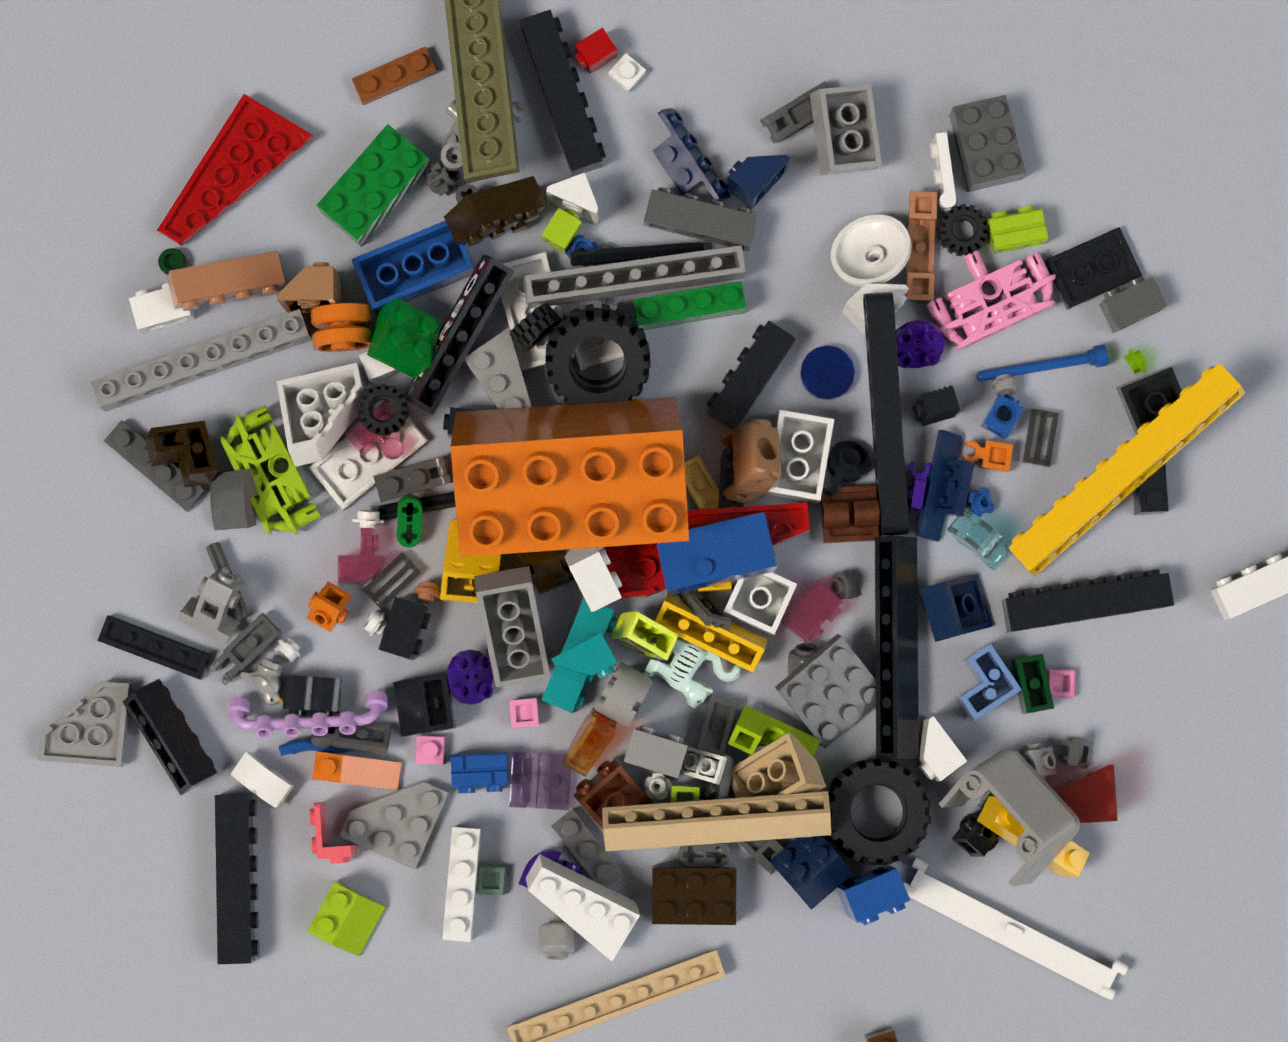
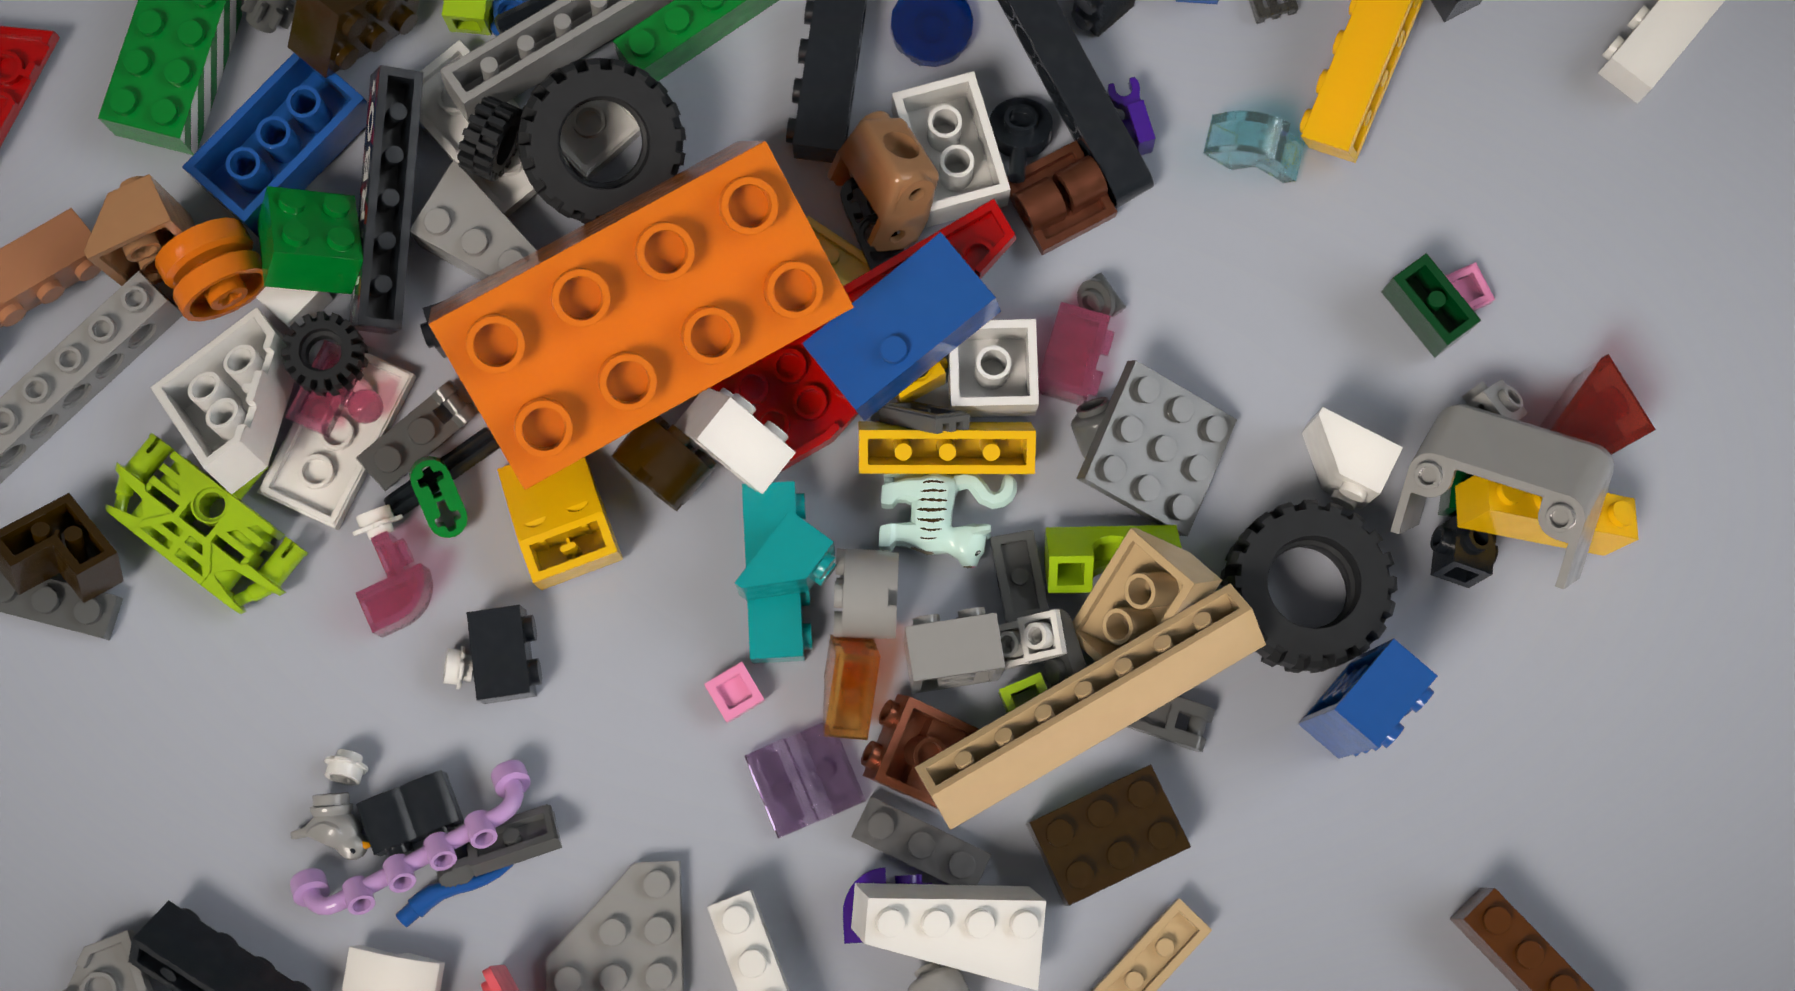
camera: 25 degrees left, 5 degrees down
(154, 647) = (144, 859): black tile -> none
(219, 561) = (211, 710): dark grey axle -> none
(220, 591) = (204, 724): light grey tile -> none
(231, 499) = (160, 587): dark grey slope -> none
(247, 646) = (282, 792): dark grey hinge -> none
(329, 606) = (376, 674): orange brick -> none
(356, 770) = (527, 894): orange slope -> none
(409, 564) = (469, 603): clear smoke tile -> none
(424, 705) = (583, 749): black slope -> none
(427, 592) = (512, 586): nougat plate -> none
(430, 750) = (623, 812): bright pink plate -> none
(461, 677) = (623, 658): dark purple plate -> none
(479, 770) = (709, 807): blue brick -> none
(491, 880) = (802, 958): sand green tile -> none
(512, 626) = (656, 570): light grey brick -> none
(637, 631) = (841, 491): neon yellow torso -> none
(662, 792) = (988, 708): white plate -> none
(705, 861) = (1096, 779): dark grey beam -> none
(811, 868) = (1258, 711): dark blue brick -> none
(896, 647) = (1218, 346): black brick -> none
(945, 487) = (1174, 97): dark blue bracket -> none
(956, 607) = (1269, 254): dark blue slope -> none
(974, 505) = (1228, 96): blue plate -> none
(993, 685) = (1376, 329): medium blue brick -> none
(994, 455) = (1214, 27): orange plate -> none
(1012, 933) = (1592, 667): white piece -> none
(1078, 753) = (1541, 371): dark grey tile -> none
(1087, 602) = (1444, 162): black brick -> none

